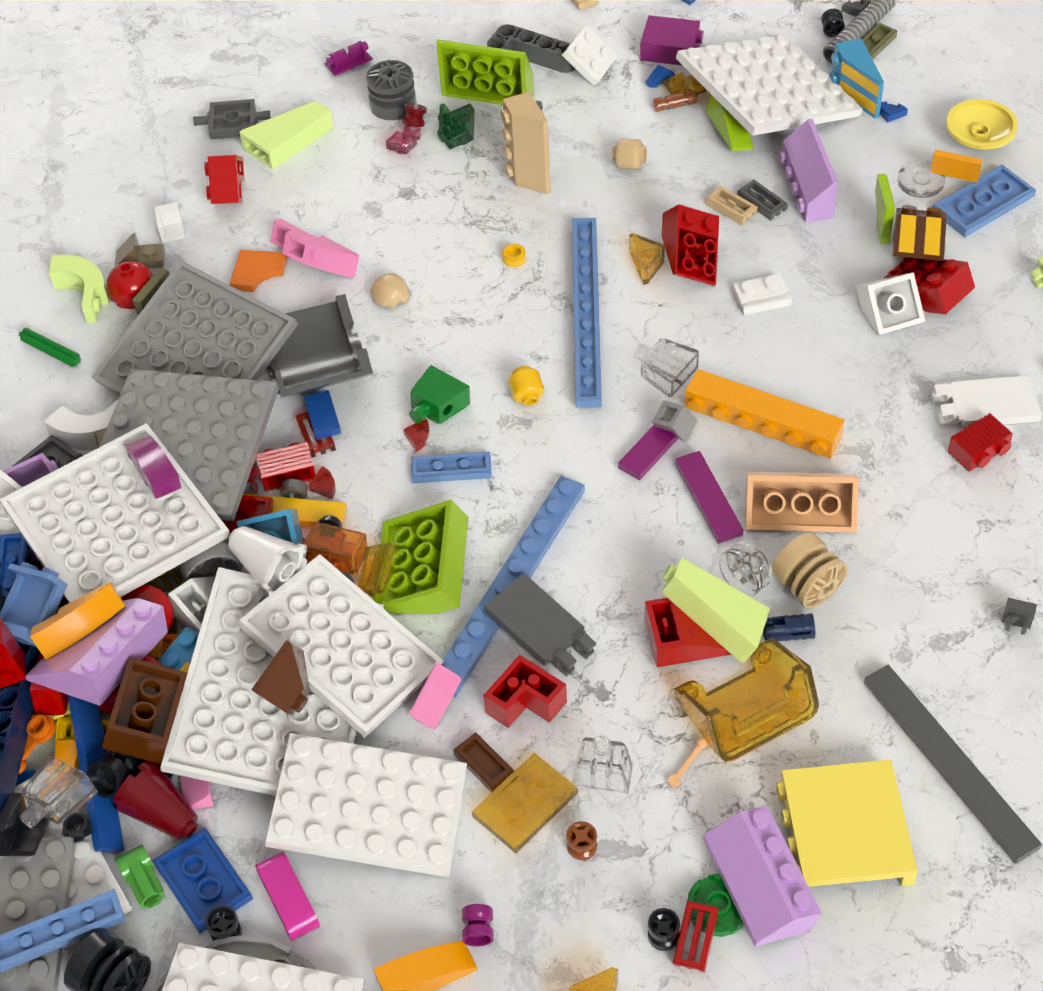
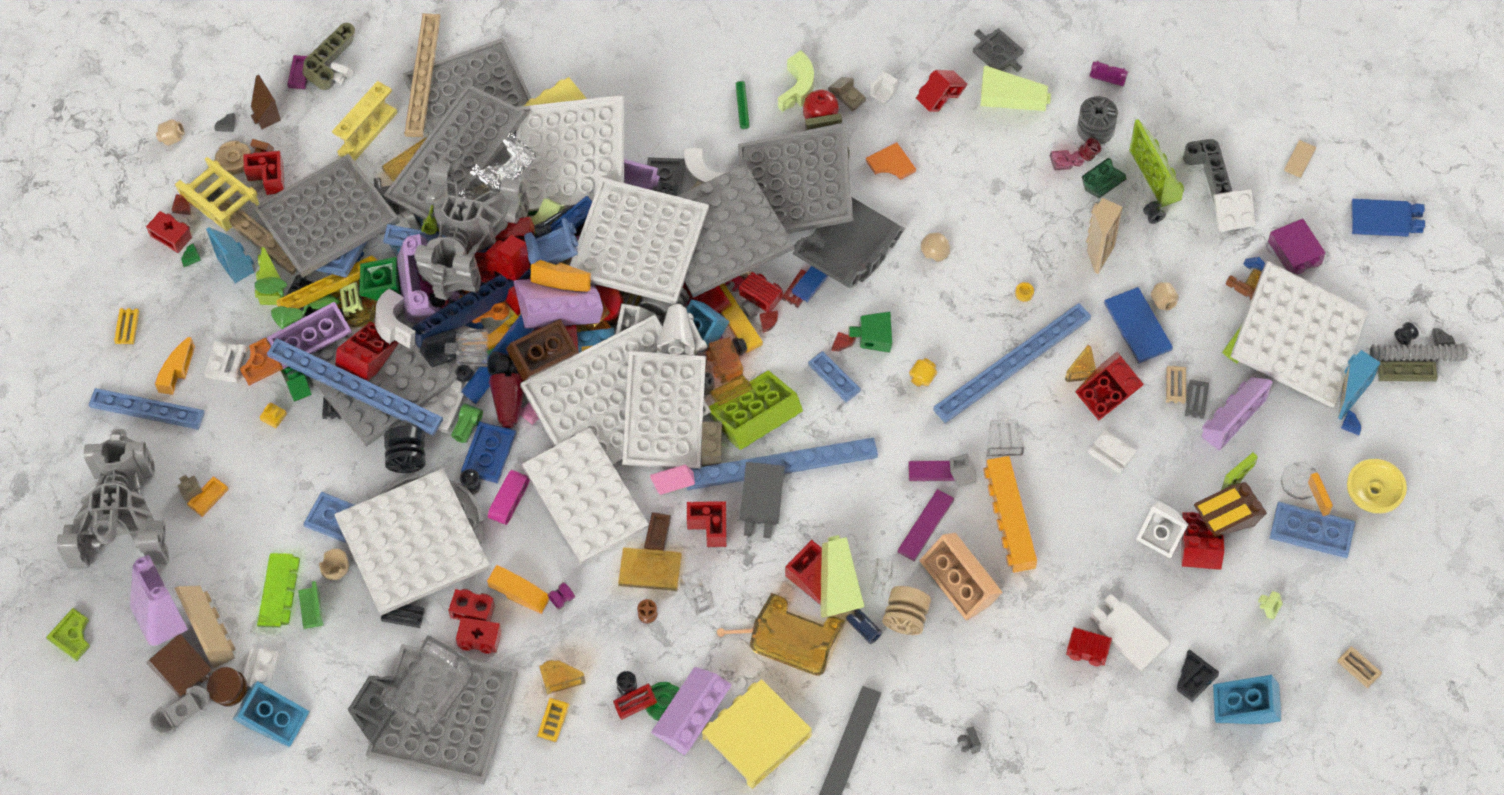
camera: 50 degrees right, 10 degrees up
(153, 466) = (680, 232): magenta slope -> none
(285, 680) = (611, 401): reddish brown slope -> none
(314, 251) = (926, 184): bright pink slope -> none
(427, 626) = (711, 443): none -> dark tan brick
(636, 193) = (1138, 325): none -> blue tile

